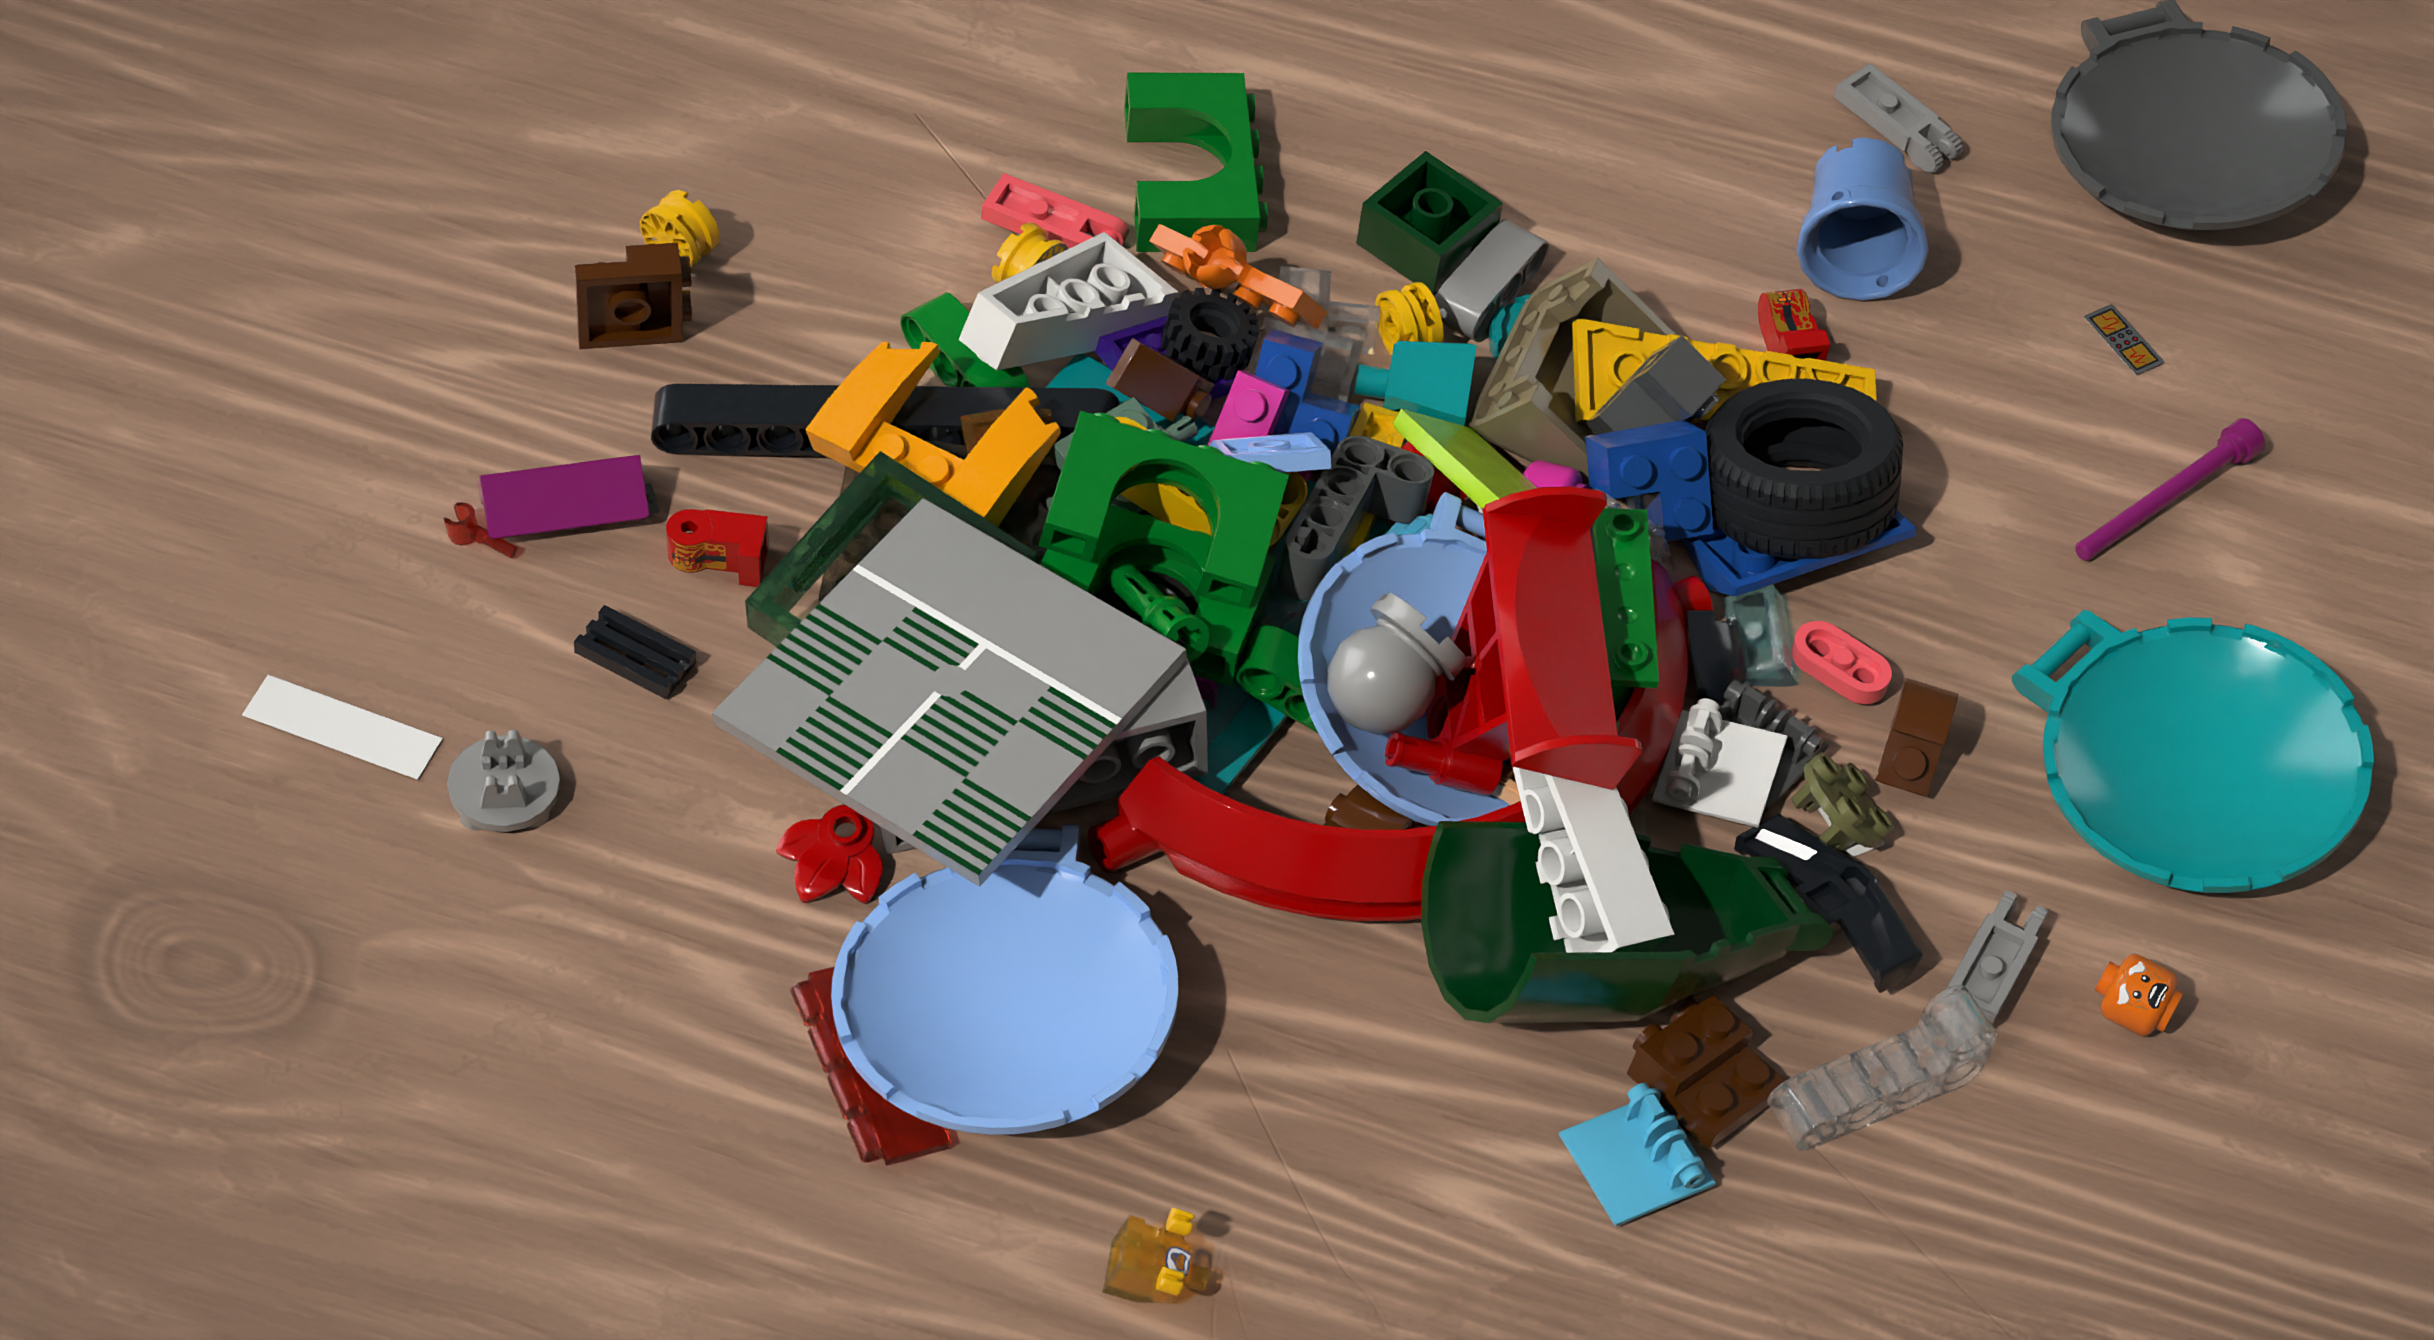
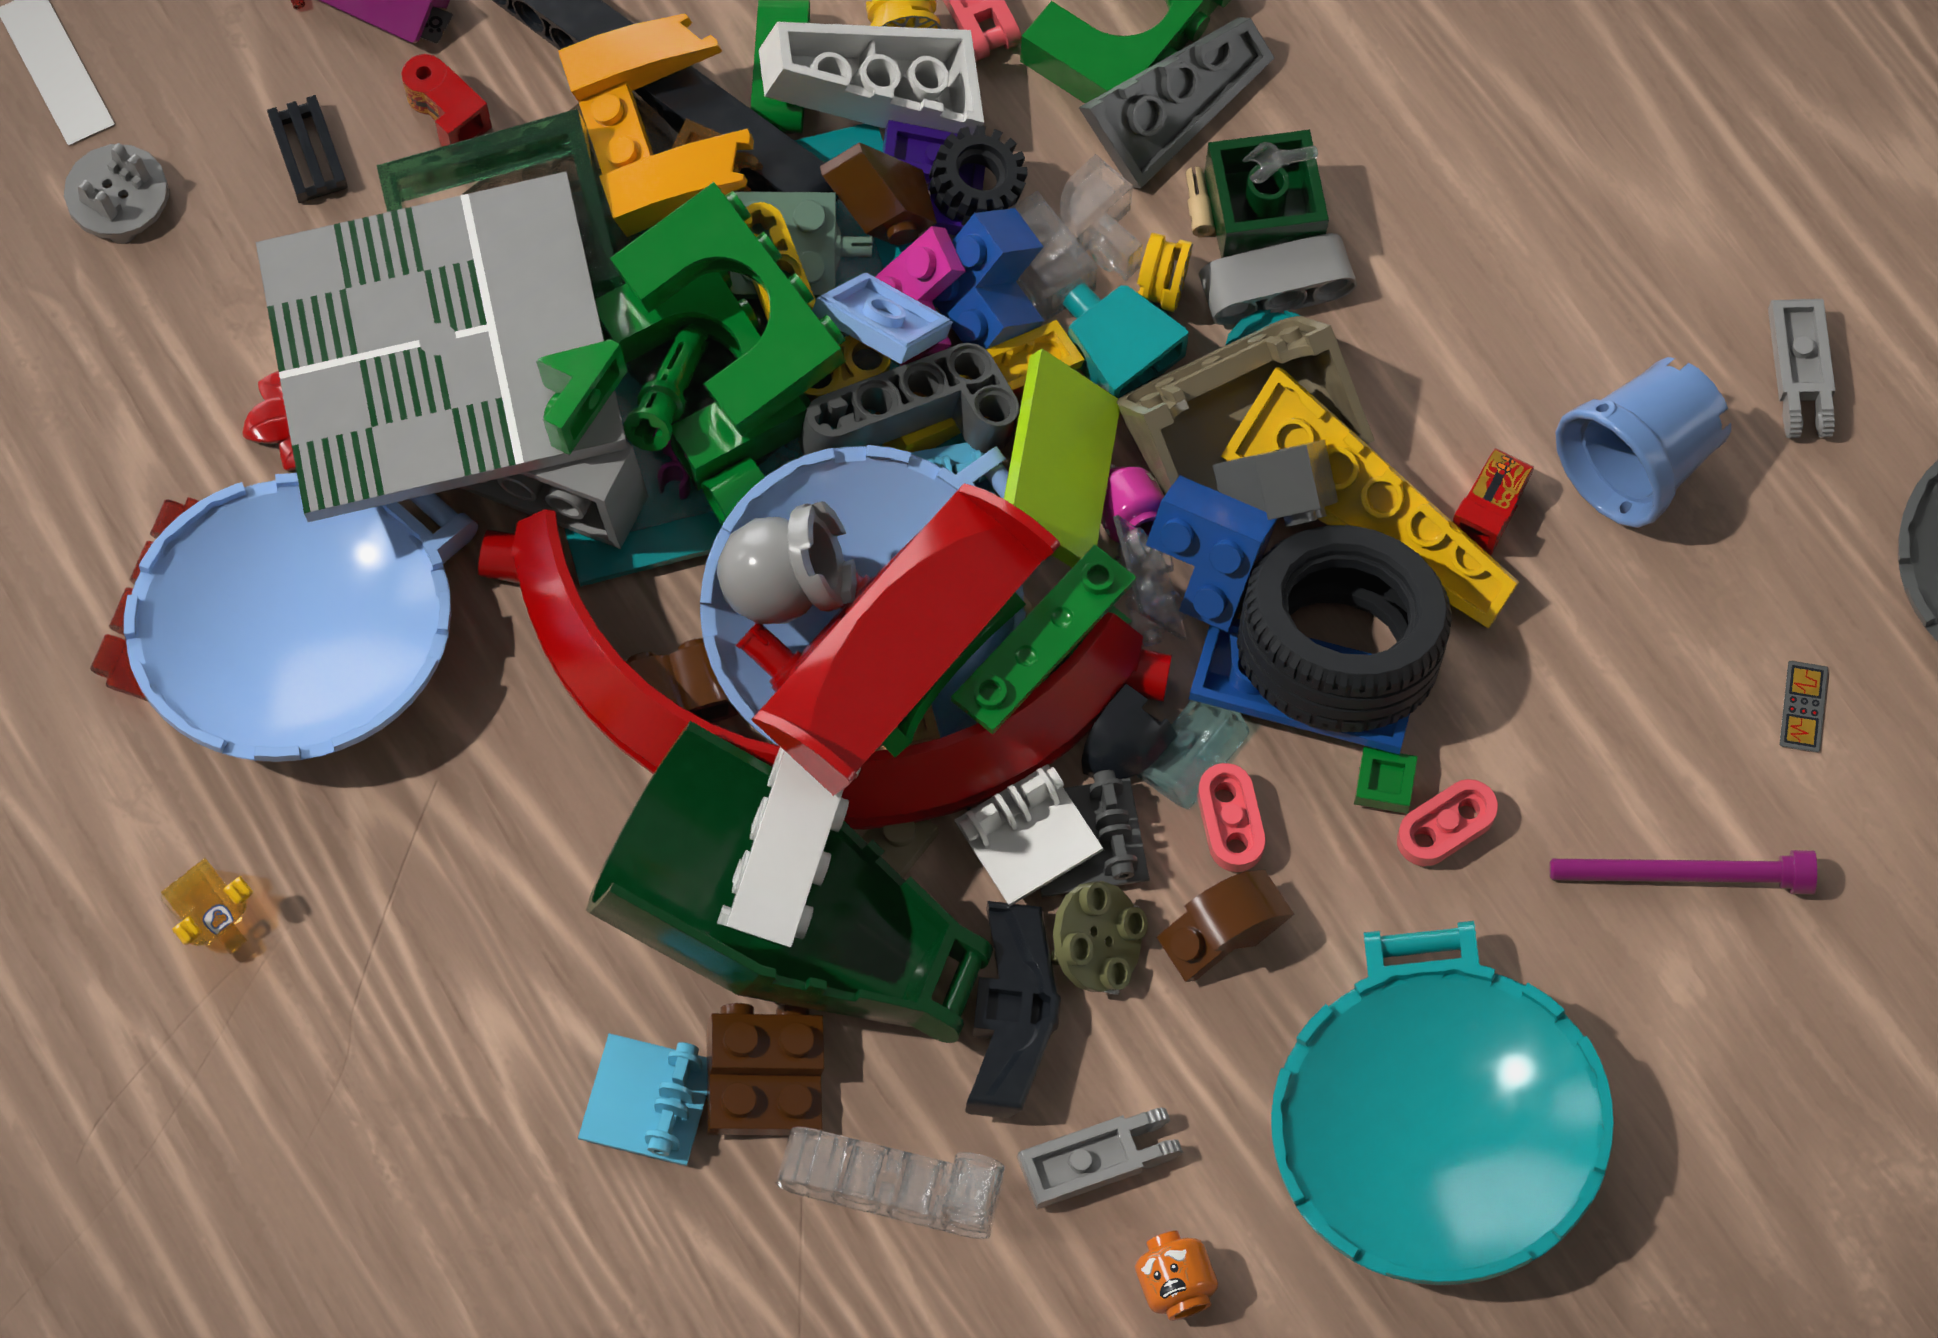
camera: 45 degrees right, 15 degrees up
(1117, 625) = (582, 385): none -> green slope
(1219, 261) = (1038, 123): orange plate -> none
(1290, 198) = (1170, 102): none -> dark grey wing
(1374, 266) = (1199, 205): none -> tan pin
(1428, 182) = (1272, 159): none -> clear hand
(1917, 565) = (1385, 780): none -> green plate
(1987, 565) = (1444, 824): none -> coral plate

